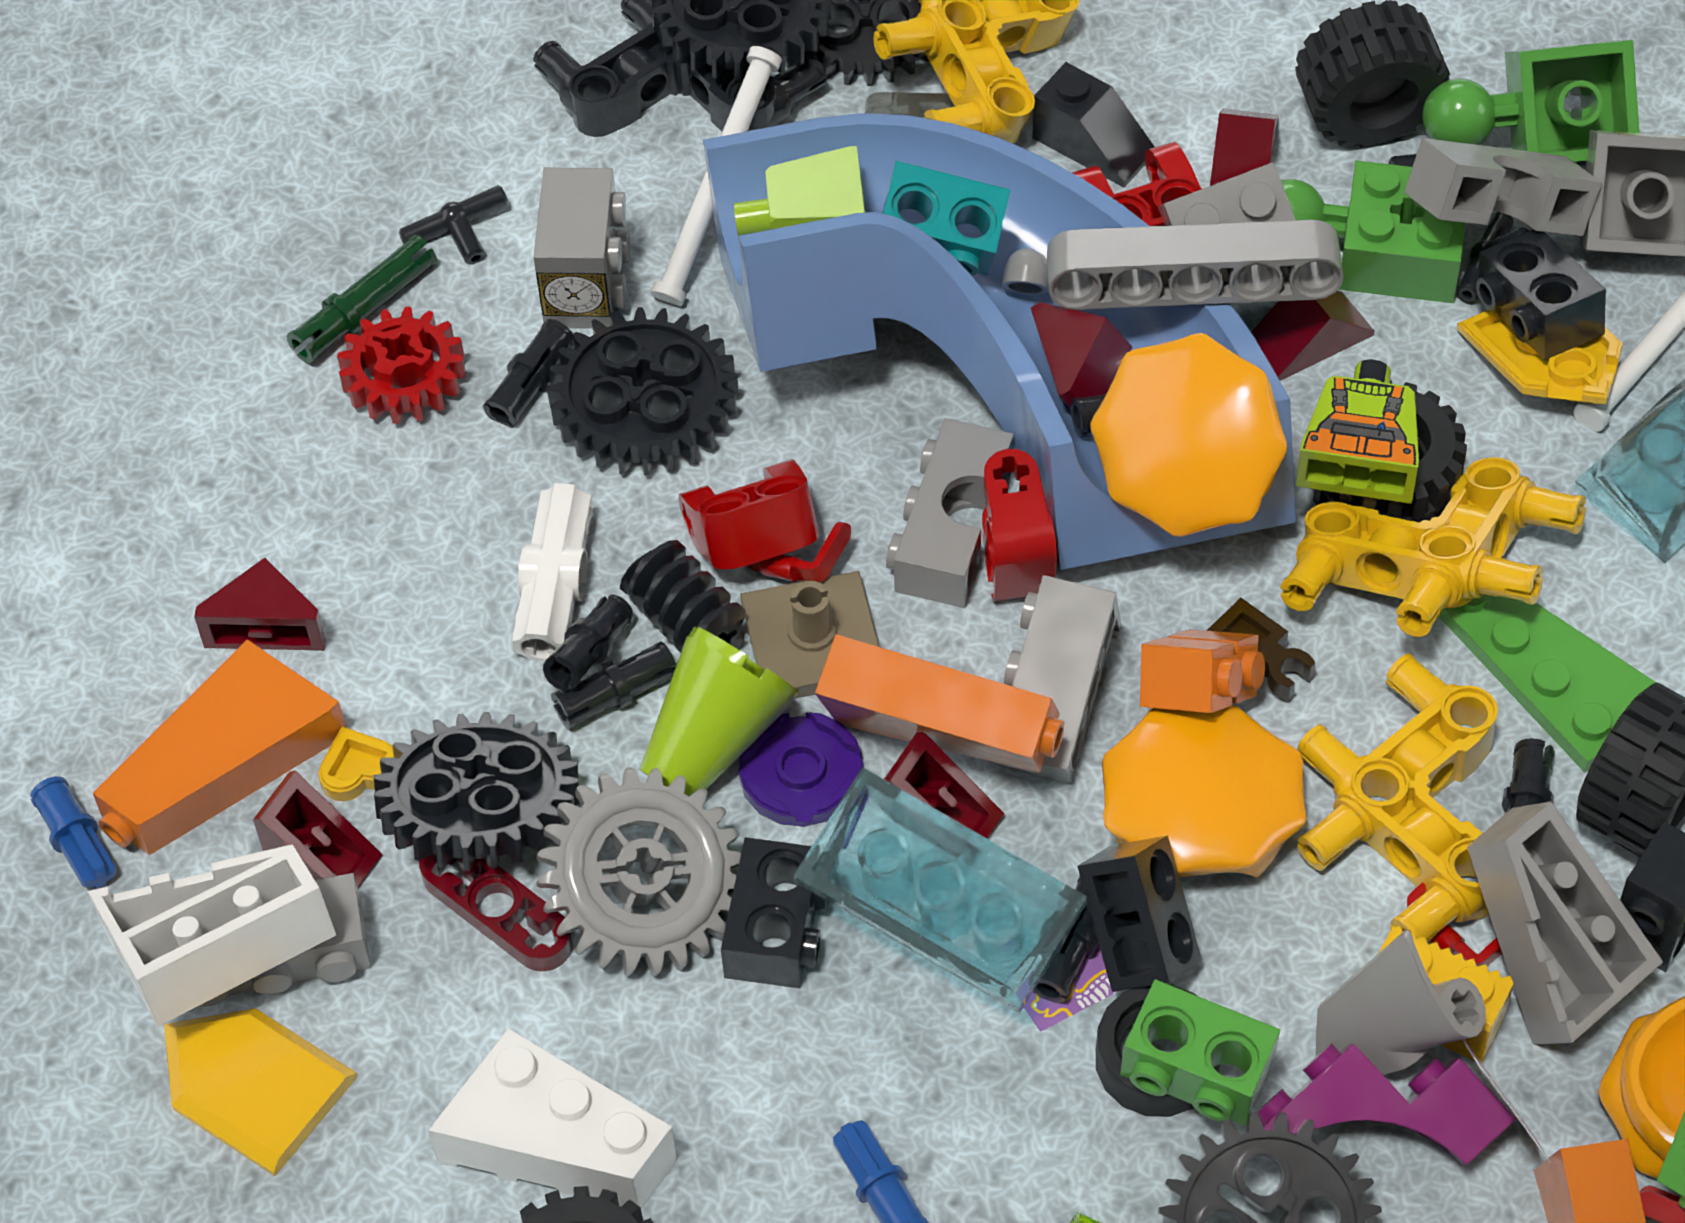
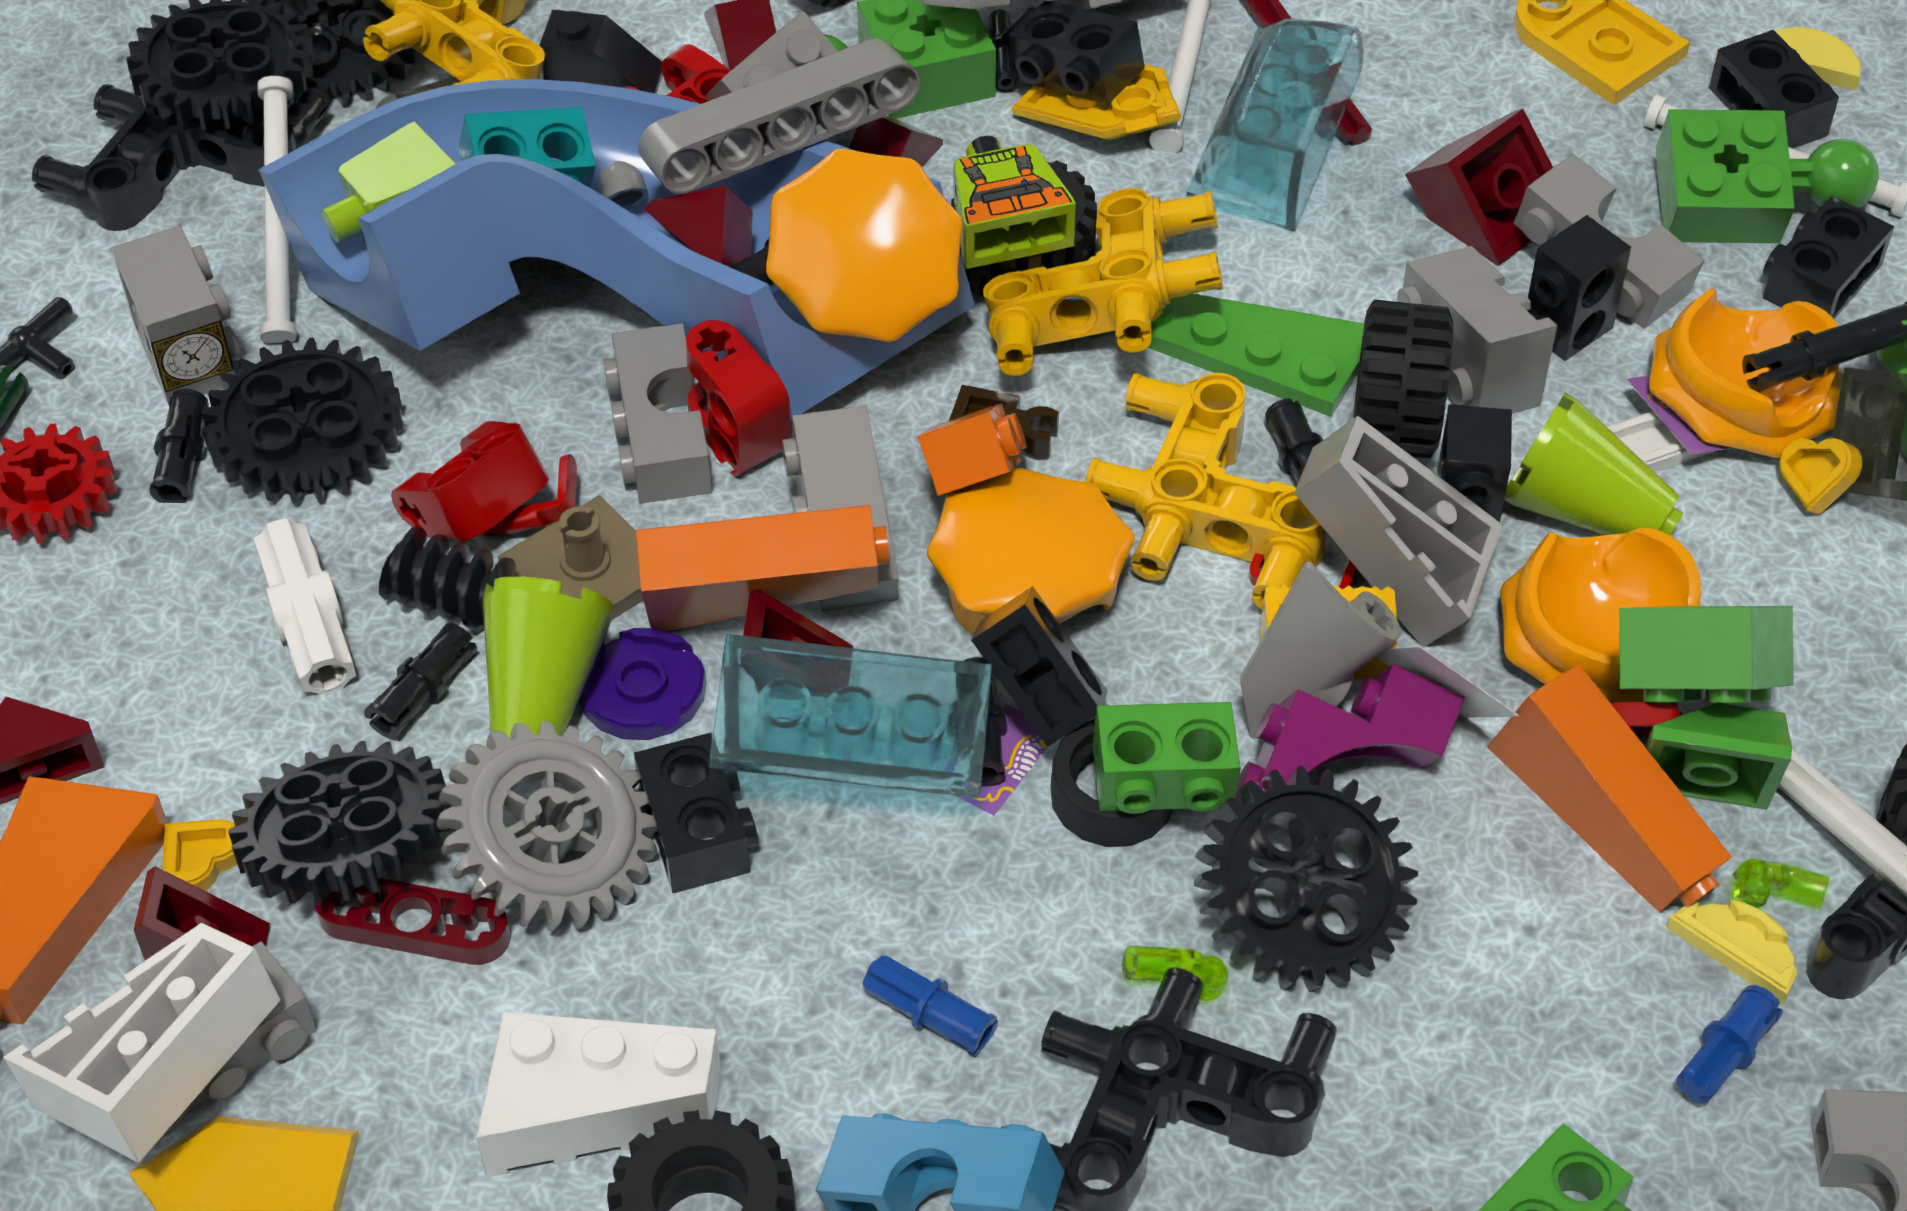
camera: 30 degrees left, 5 degrees down
(588, 642) = (377, 650): black pin -> none

